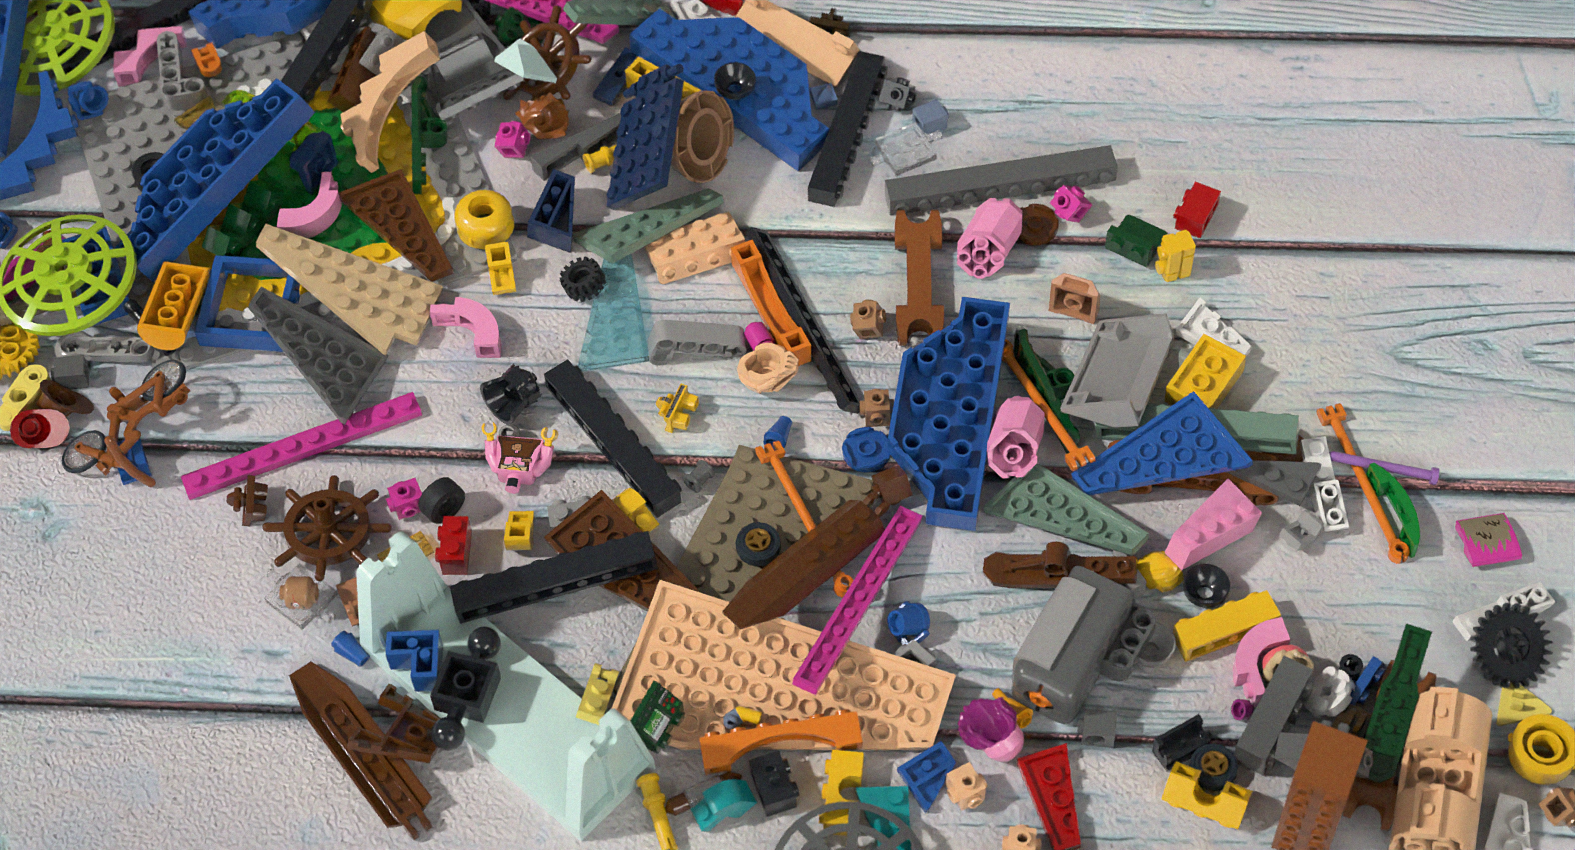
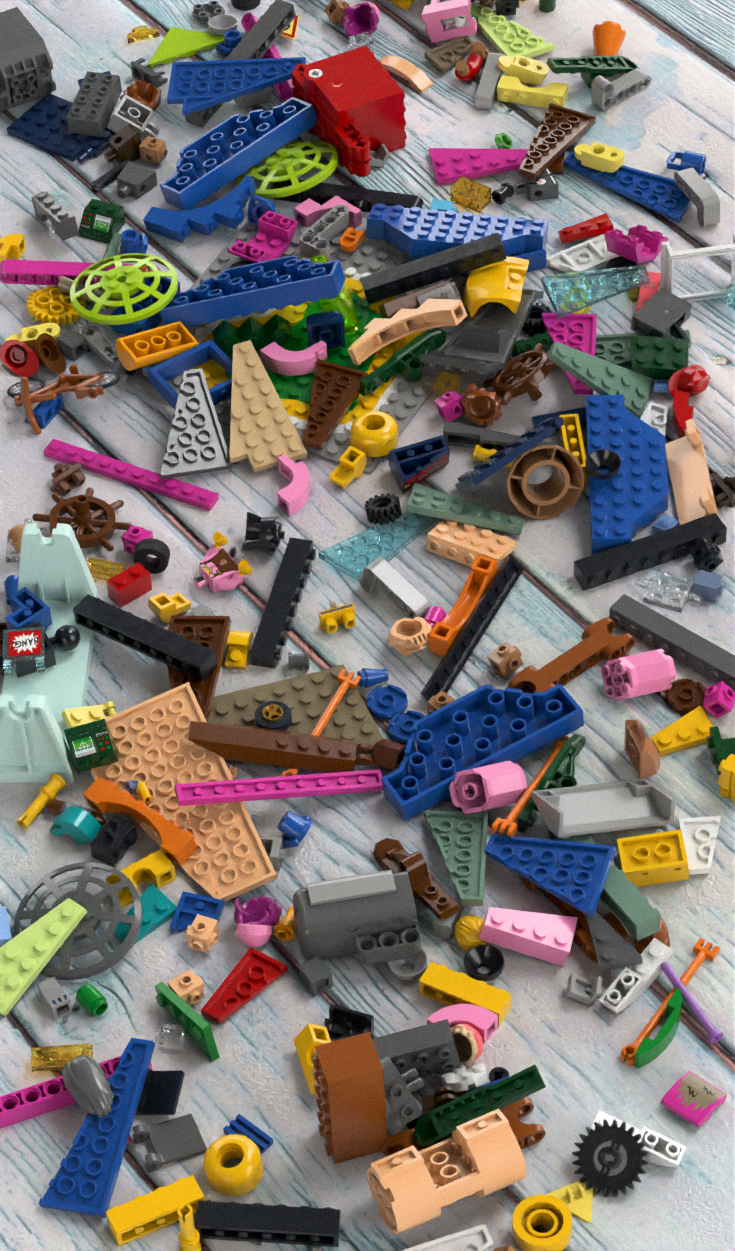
camera: 50 degrees right, 10 degrees down
(130, 120) = (271, 240): none -> dark pink slope
(469, 686) = (23, 645): none -> flag
(482, 122) = (453, 381): none -> clear yellow brick
(525, 62) = (496, 362): light aqua slope -> none
(818, 444) = (387, 702): none -> blue tile
(1077, 249) = (683, 733): none -> yellow wing

